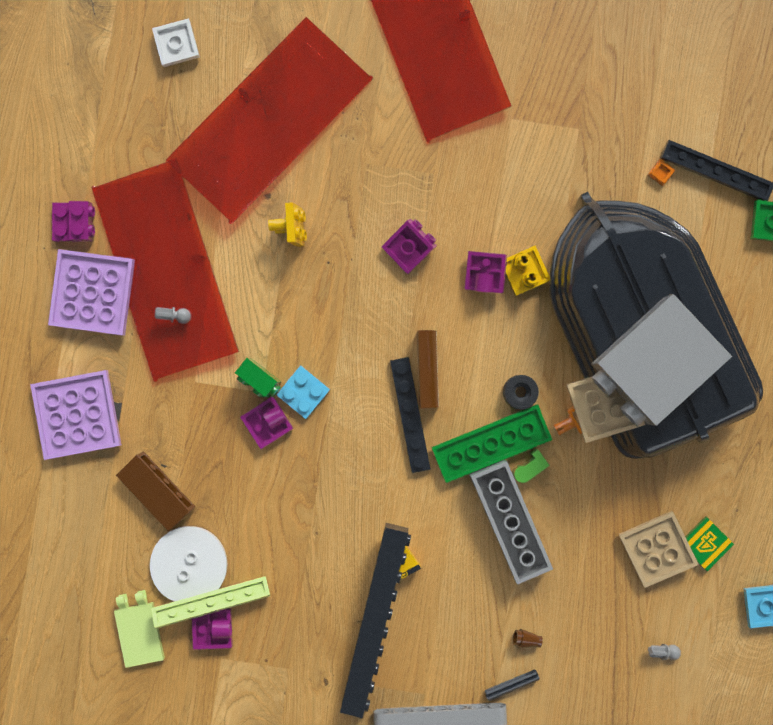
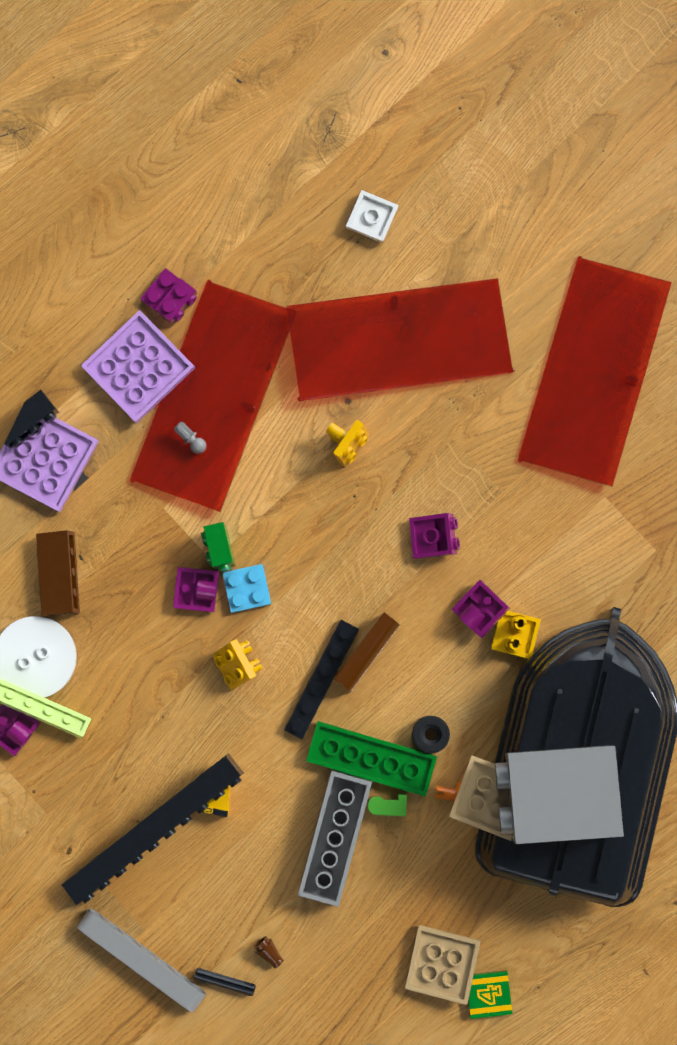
camera: 40 degrees right, 5 degrees down
(41, 391) = (33, 414): none -> black slope
(339, 455) = (234, 663): none -> yellow plate

